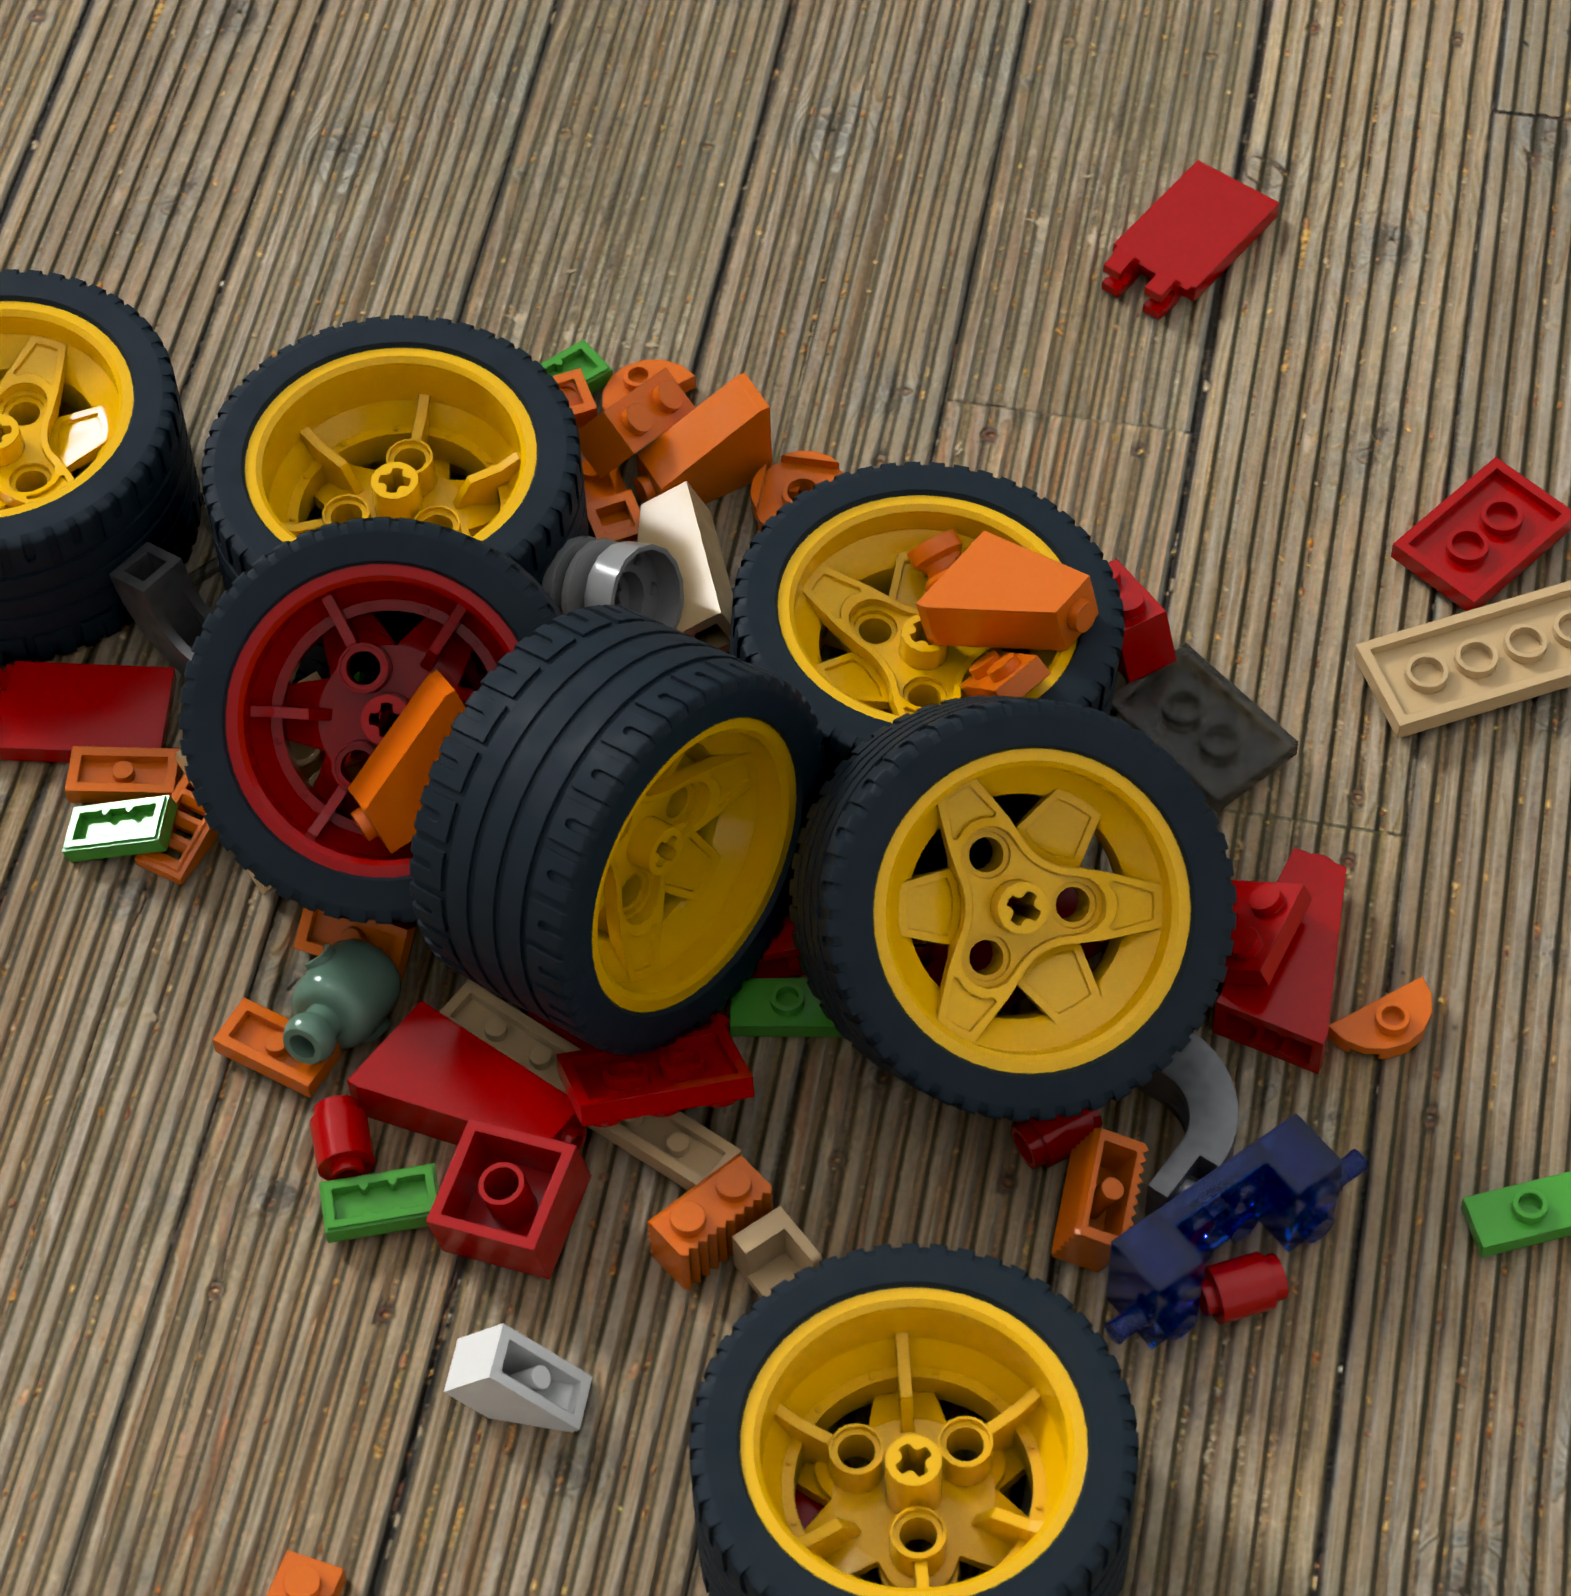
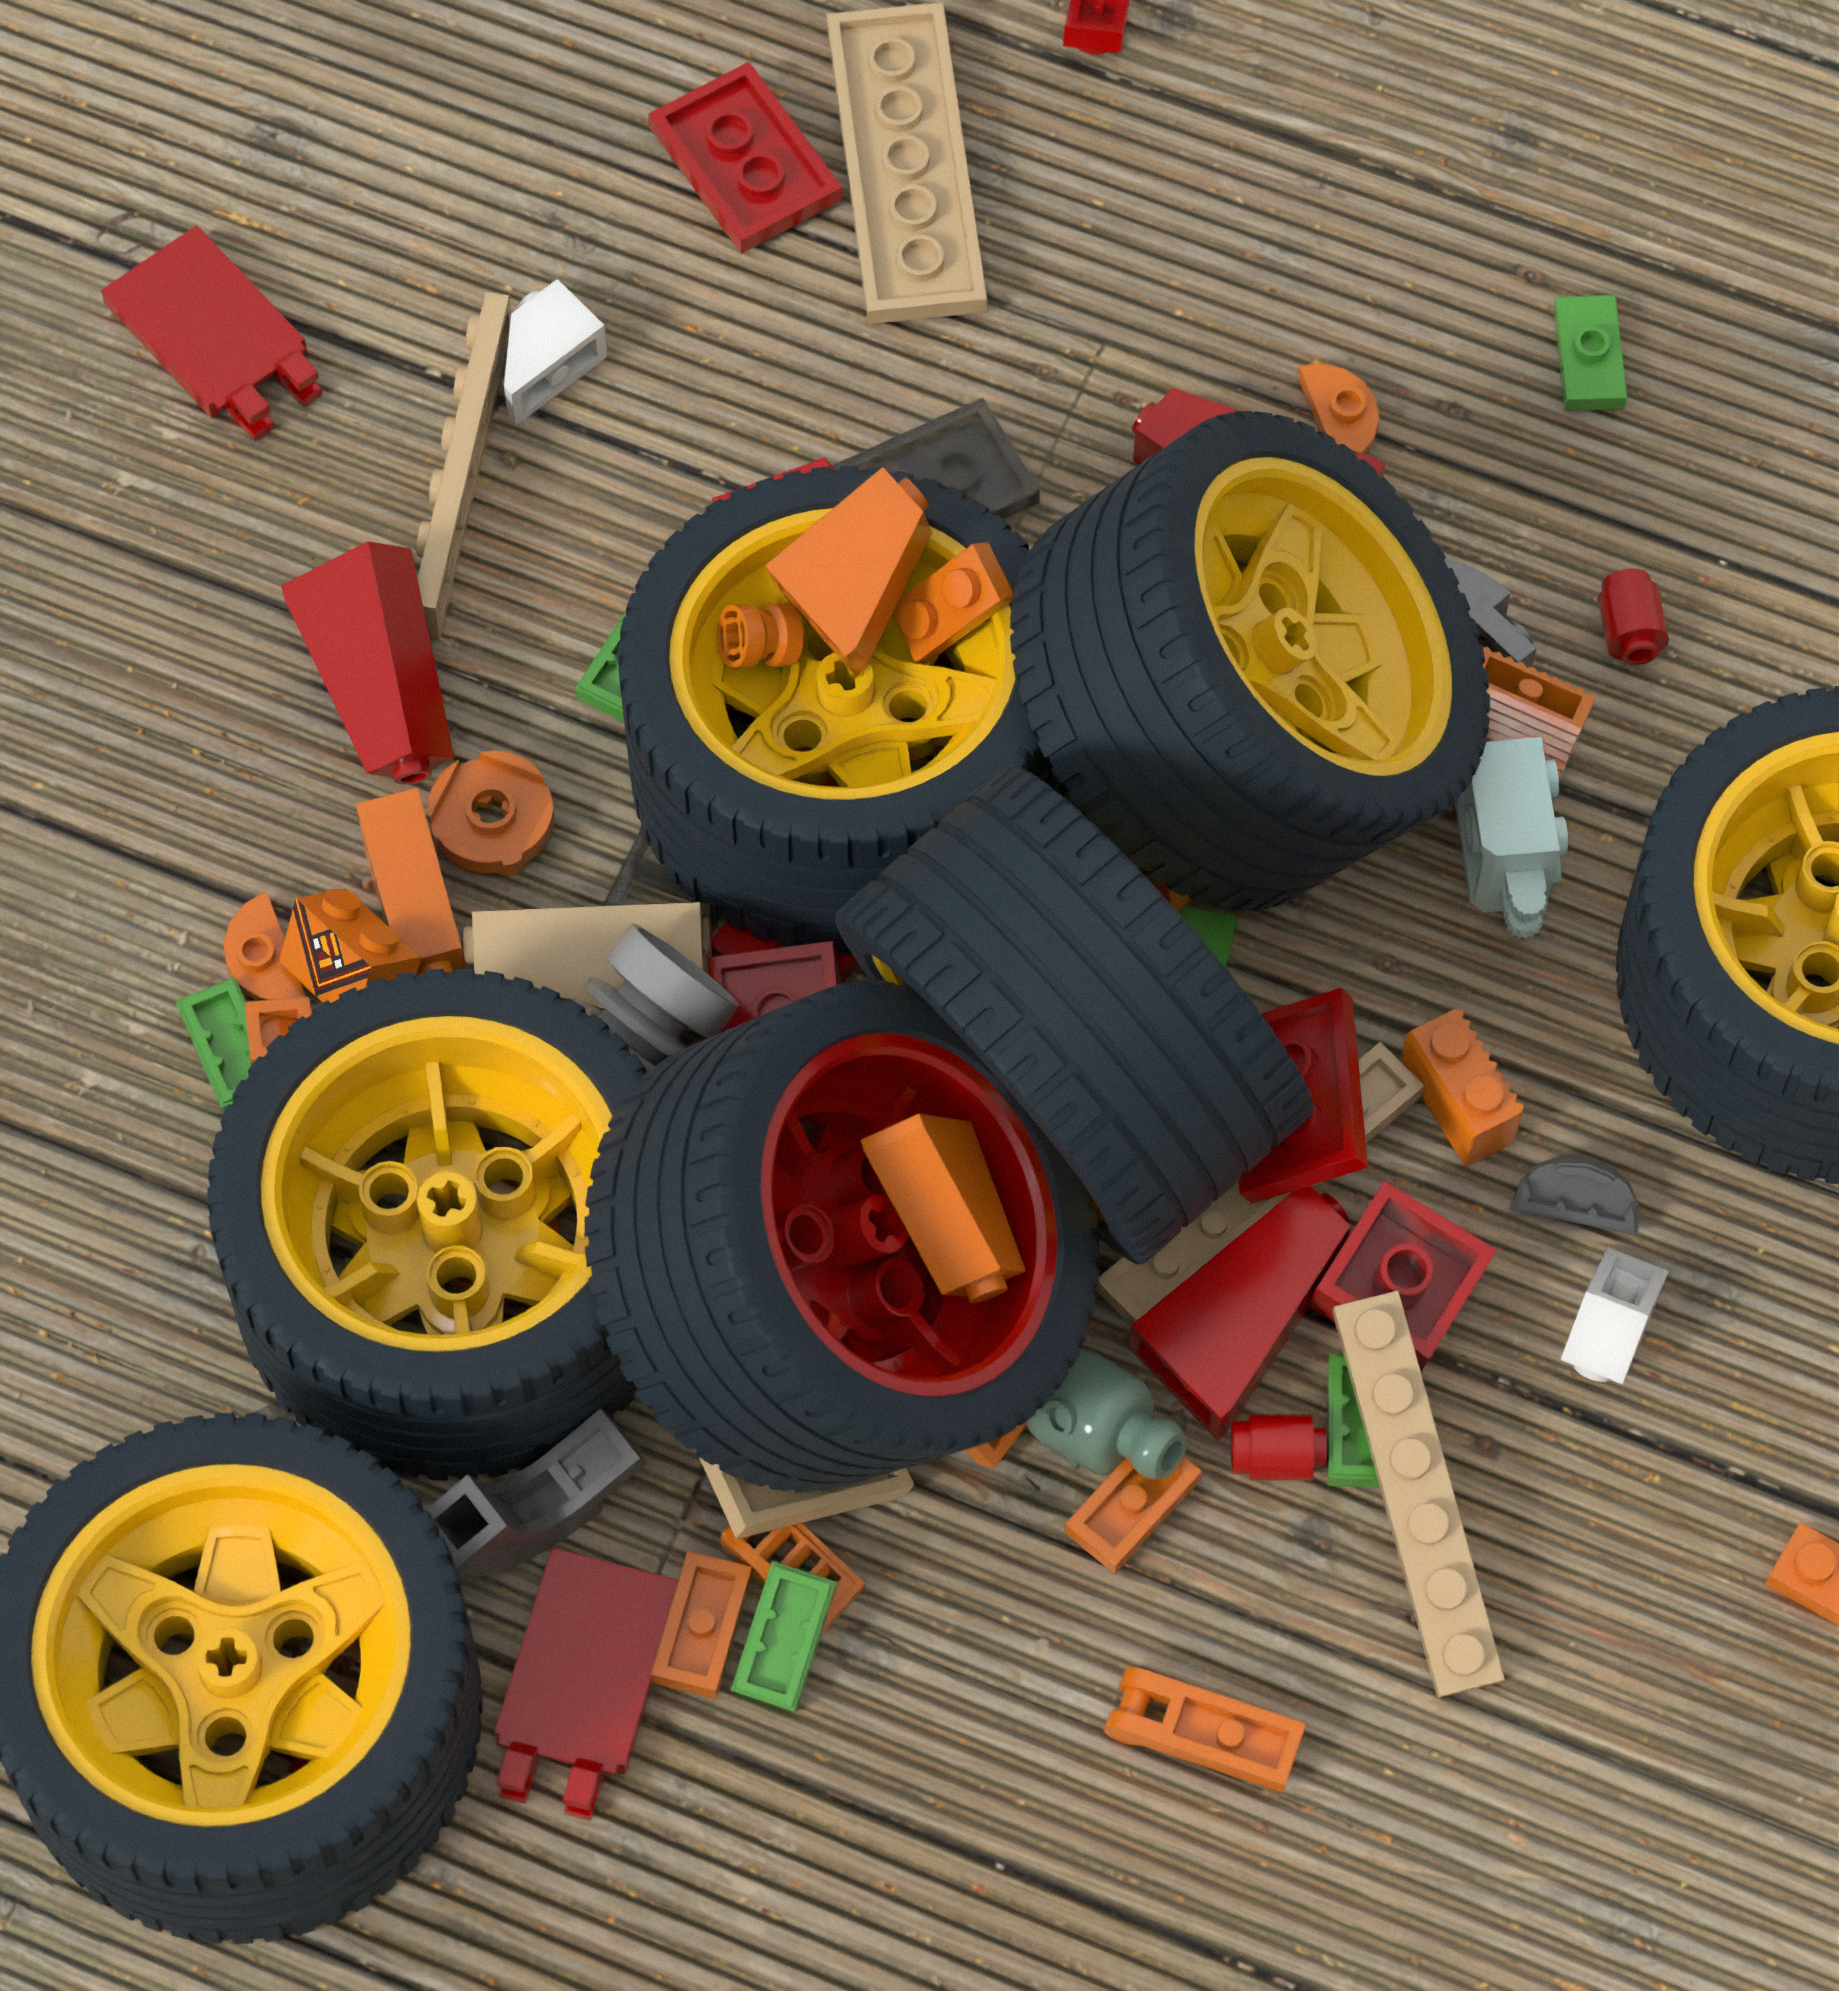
camera: 80 degrees left, 10 degrees up
(82, 1138) = (1206, 1729): none -> orange plate
(304, 1242) = (1418, 1494): none -> tan plate
(633, 1341) = (1579, 1192): none -> dark grey plate
(772, 1251) = (1517, 1033): tan panel -> none
(903, 387) = (375, 657): none -> red slope
(970, 1198) = (1511, 833): none -> light aqua hinge
(1114, 409) = (464, 442): none -> tan plate
(1238, 439) = (549, 348): none -> white slope
(1281, 1180) = (1542, 553): clear blue brick -> none

